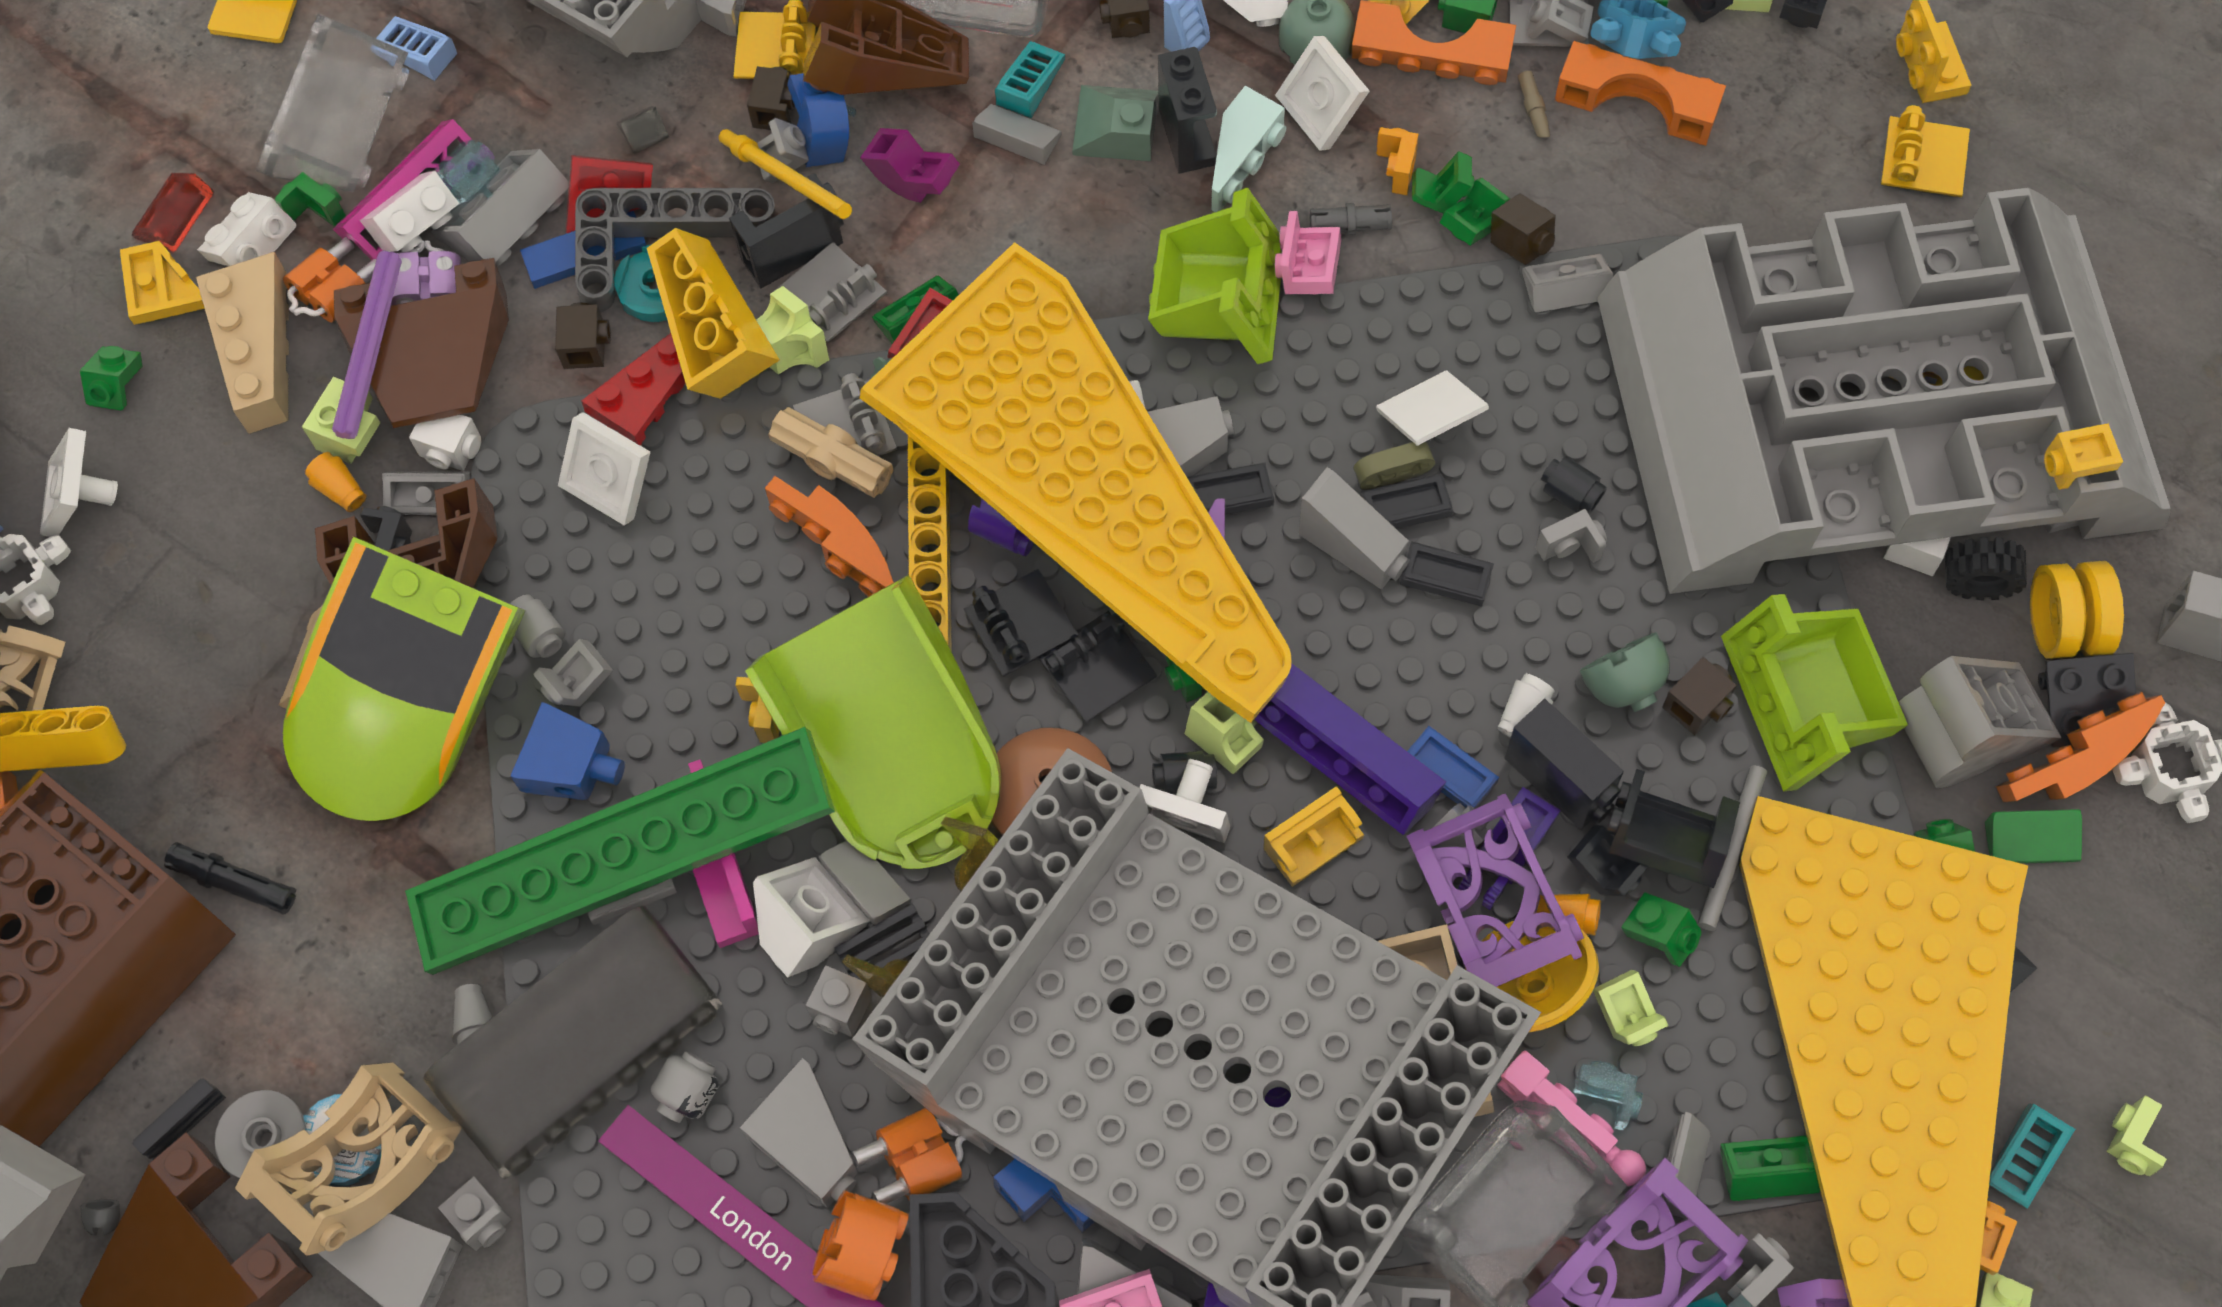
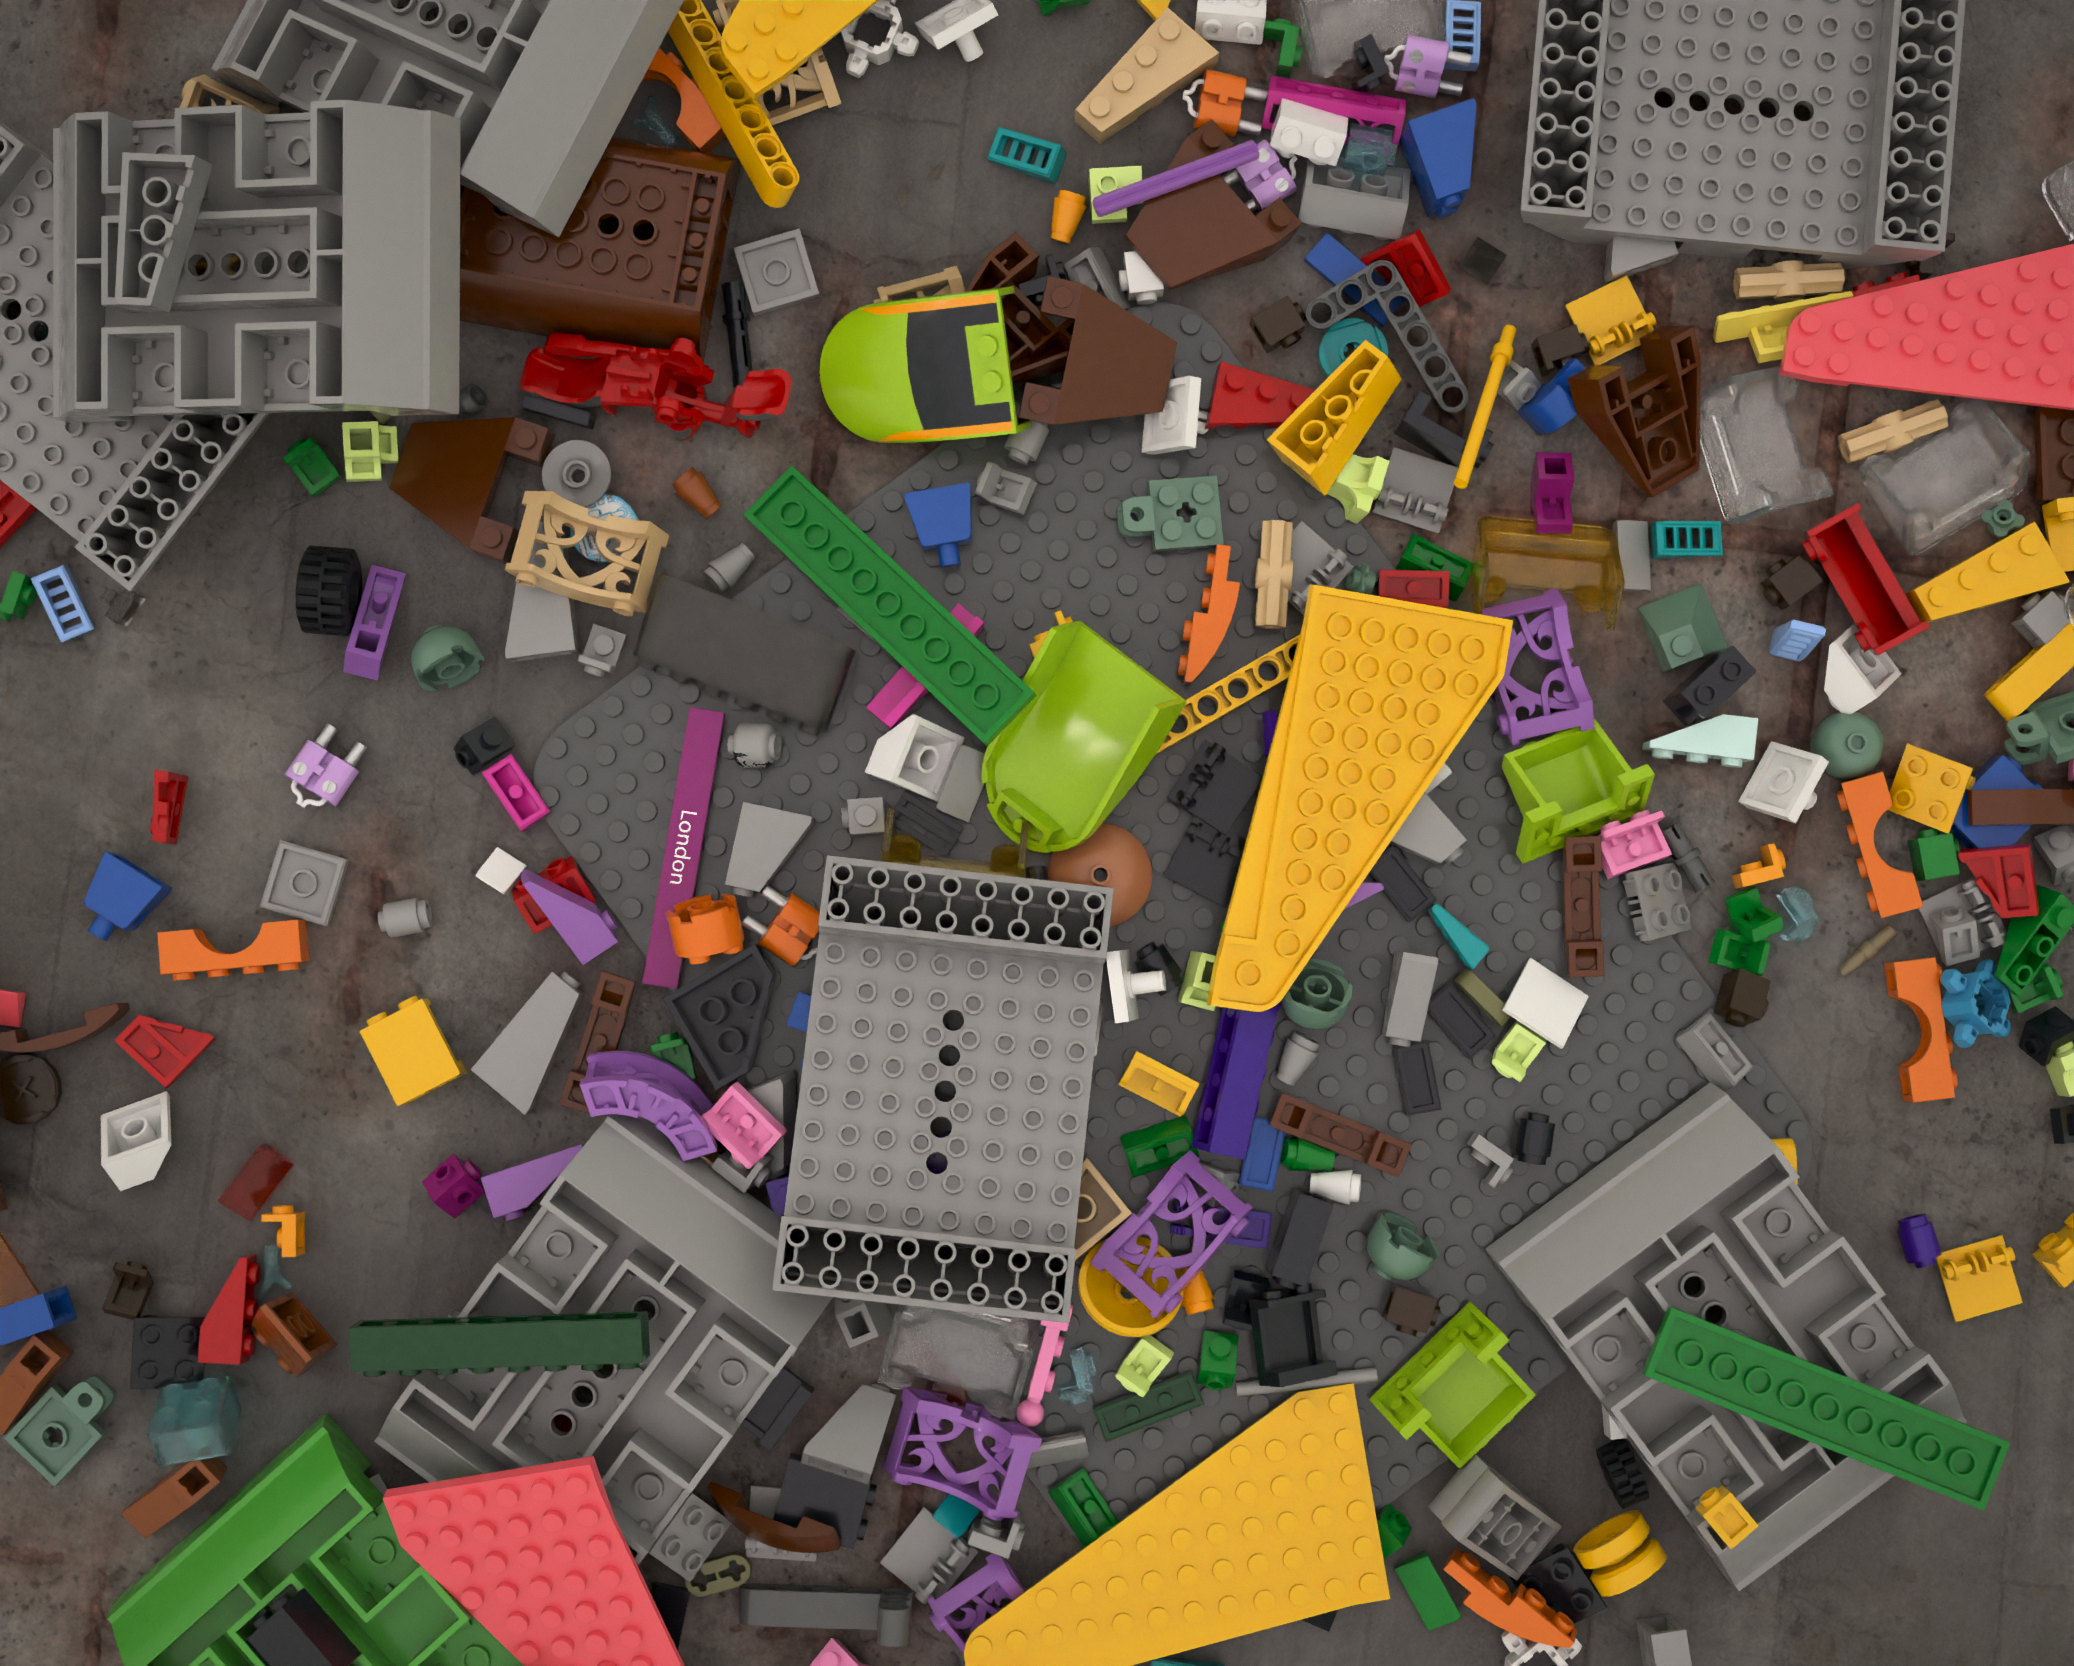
camera: 55 degrees right, 20 degrees up
(193, 804) = (776, 272): none -> light grey tile
(211, 972) = (656, 378): none -> red piece
(257, 501) = (1047, 174): none -> teal slope
(368, 1011) = (696, 492): none -> dark orange cone
(381, 129) = (1370, 58): none -> black bracket
(418, 86) = (1423, 65): none -> lavender piece
(508, 487) = (1111, 365): none -> reddish brown wedge
(515, 105) = (1440, 156): none -> blue slope
(696, 539) = (1159, 519): none -> sand green plate
(982, 195) = (1577, 563): none -> clear yellow windscreen
(1127, 239) = (1573, 701): none -> medium lavender fence
(1307, 619) = (1318, 996): none -> sand green cylinder
(1313, 457) = (1464, 943): none -> teal slope
(1346, 331) = (1582, 906): none -> reddish brown slope
(1360, 680) = (1296, 1057): none -> light grey cone
(1385, 875) = (1158, 1145): none -> green slope
(1400, 259) = (1660, 901): none -> light grey hinge
(1465, 138) = (1799, 906): none -> clear light blue bracket
(1467, 457) = (1517, 1051): none -> yellowish green bracket
(1470, 677) = (1340, 1134): none -> reddish brown slope
(1474, 724) = (1305, 1156): none -> green cone
(1681, 1043) = (1160, 1403): none -> dark green tile
(1860, 187) = (1918, 1240): none -> dark purple brick
(2001, 308) = (1826, 1408): none -> green plate

